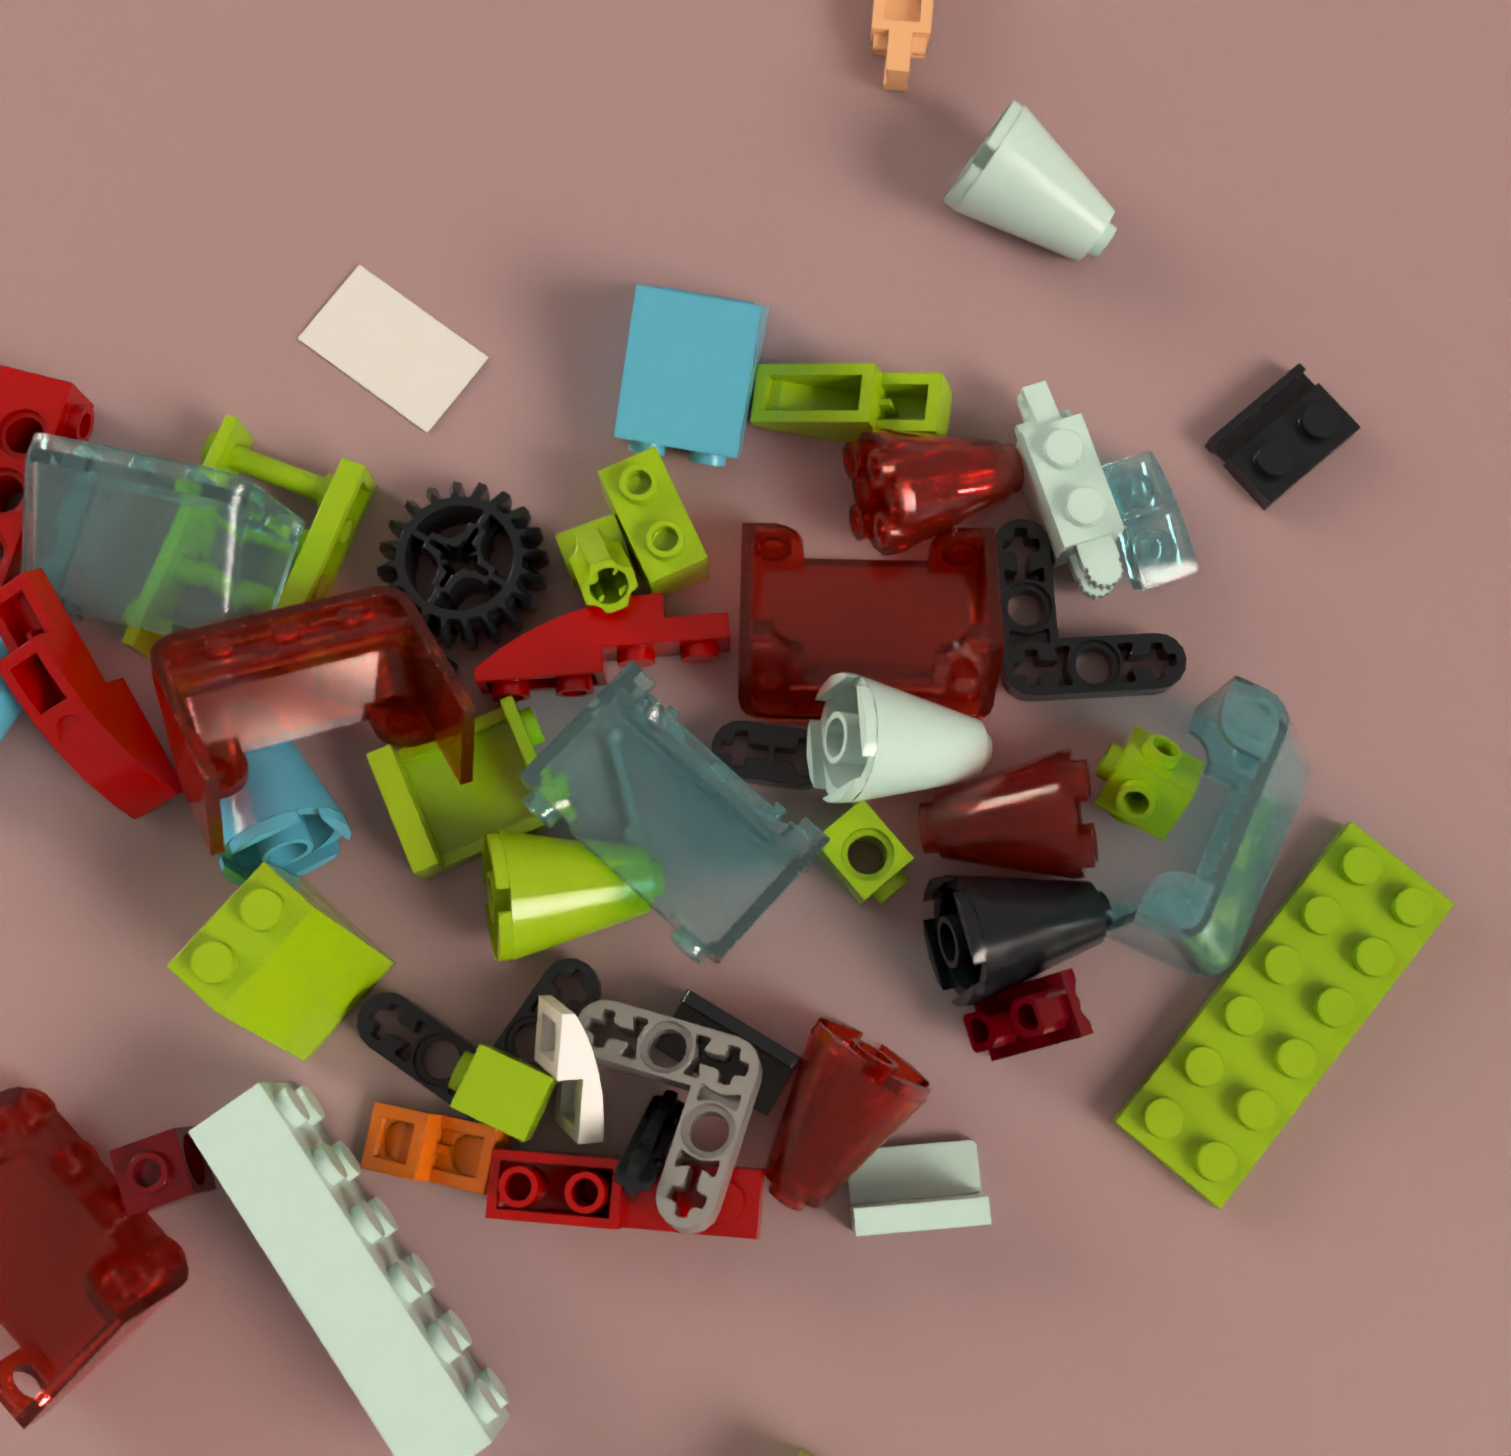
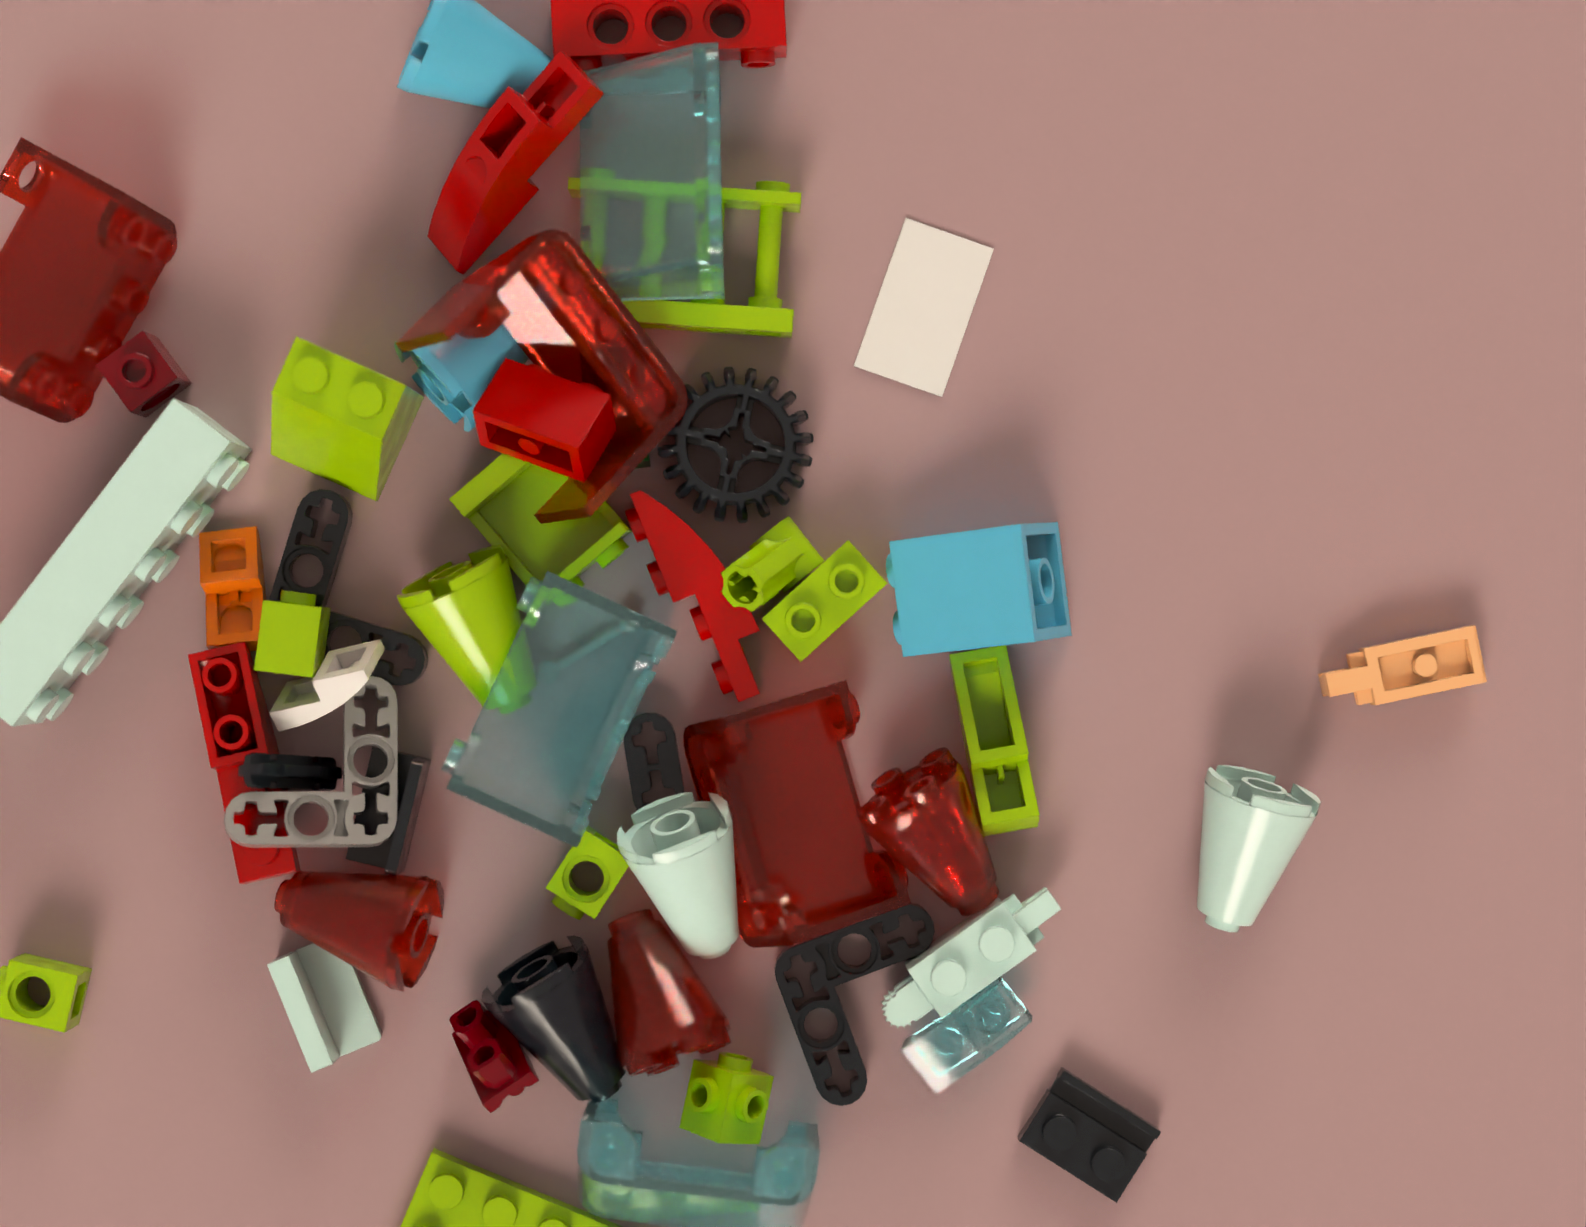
camera: 75 degrees right, 10 degrees up
(360, 736) = (545, 419): none -> red brick

